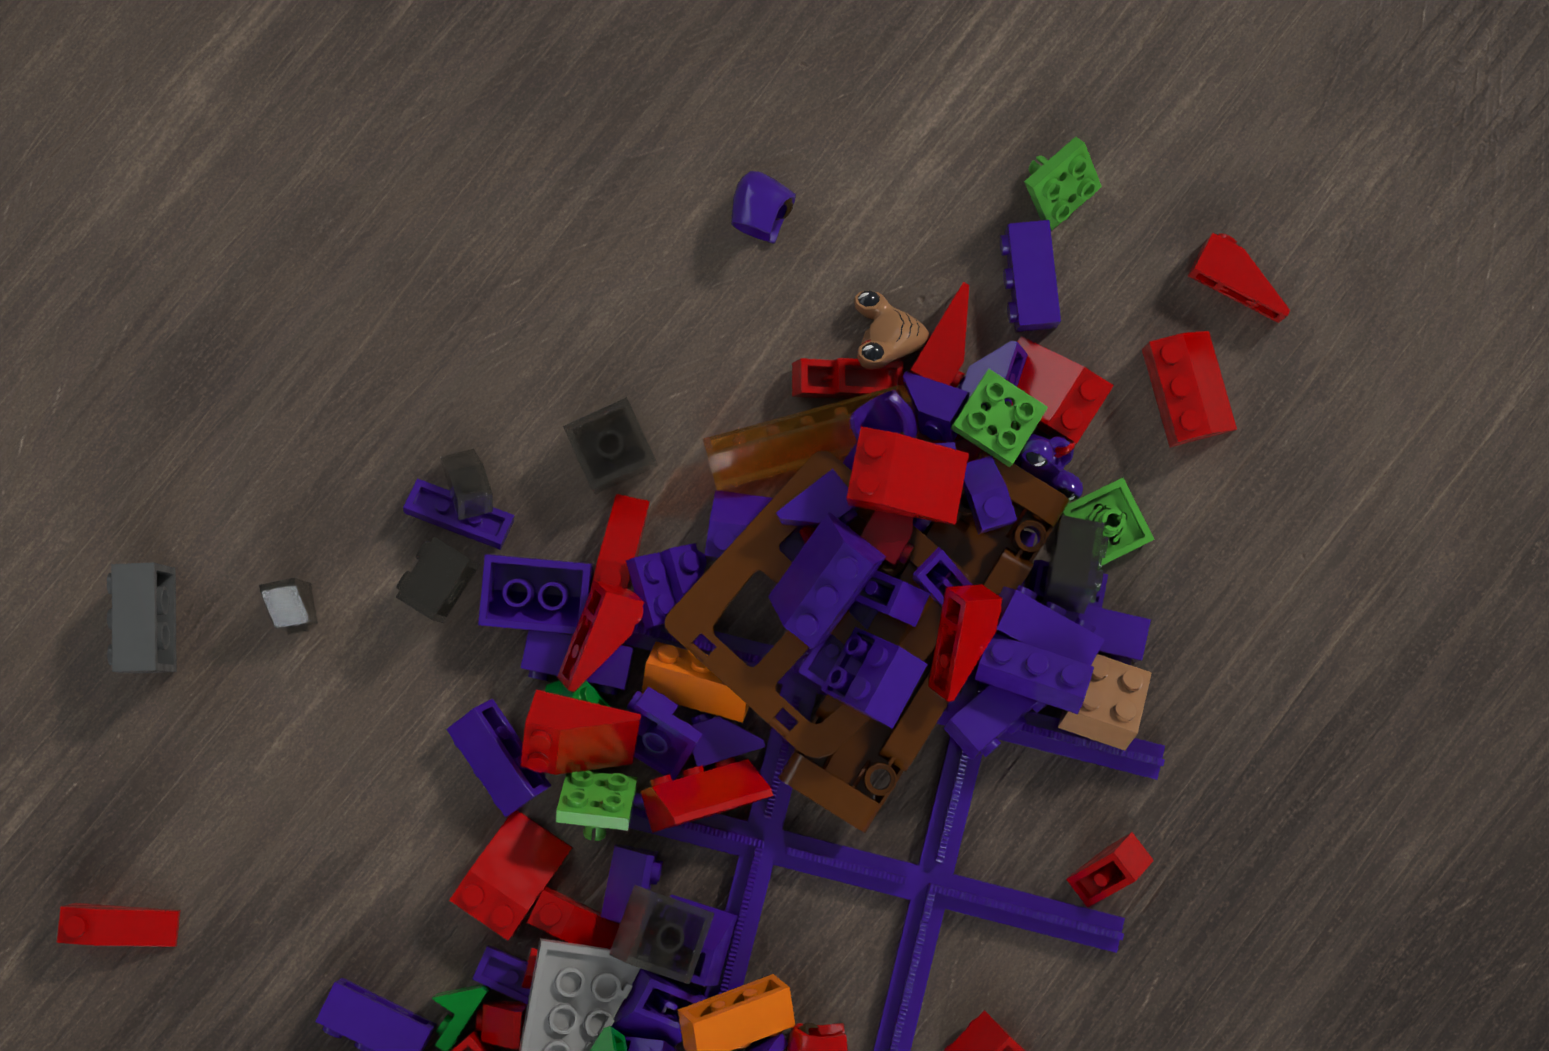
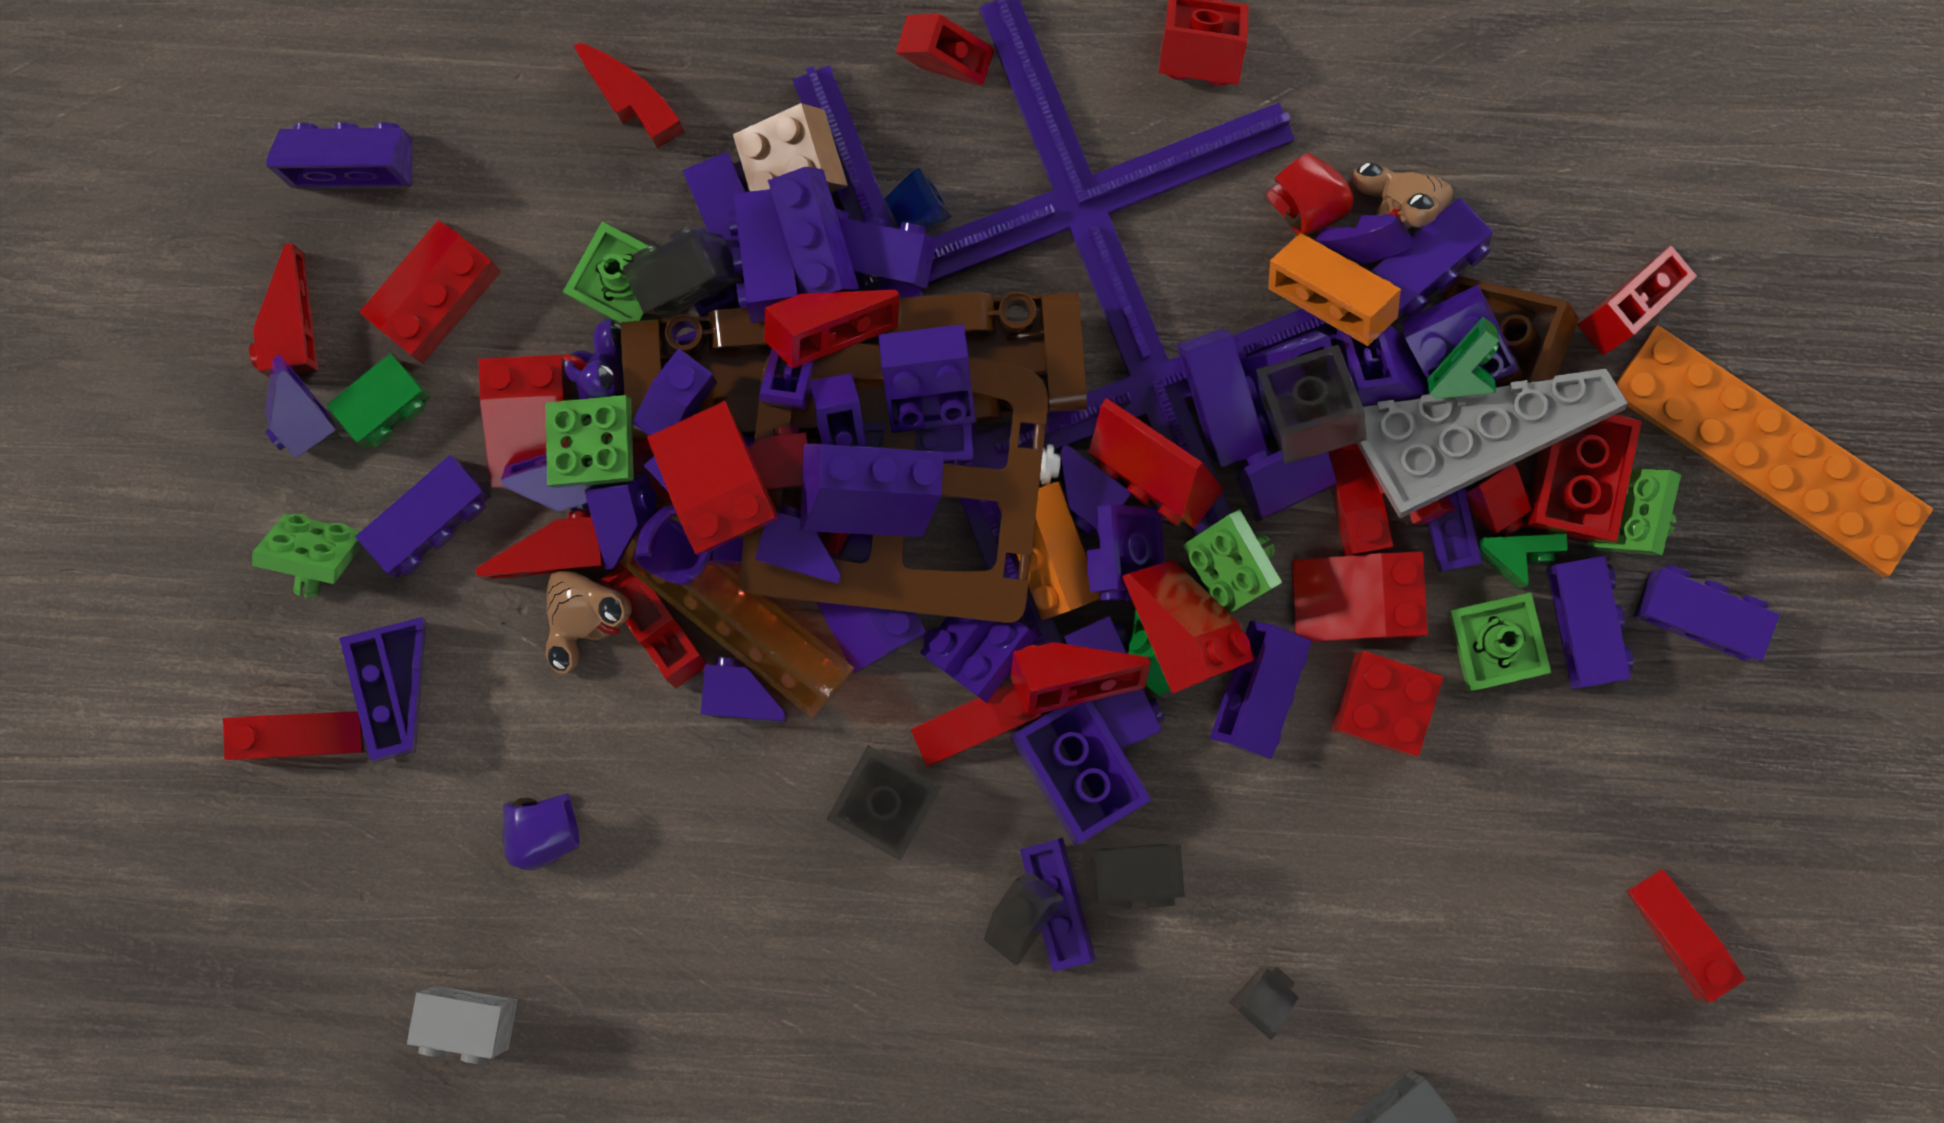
camera: 125 degrees left, 0 degrees up
(388, 959) = (1514, 638): none -> bright green plate
(424, 838) = (1387, 704): none -> red brick
(670, 68) = (461, 1023): none -> light grey brick
(717, 882) = (1223, 396): none -> dark purple brick
(756, 401) = (737, 693): none -> dark purple slope
(759, 725) = (1050, 464): none -> white plate
(931, 172) = (386, 685): none -> dark purple wedge
(944, 89) = (292, 735): none -> red slope
(1010, 768) = (917, 201): none -> clear blue slope
(1133, 300) = (379, 402): none -> green brick
(1166, 238) = (294, 412): none -> dark purple slope
(1232, 622) = (630, 95): none -> red slope
(1328, 394) = (342, 156): none -> dark purple slope

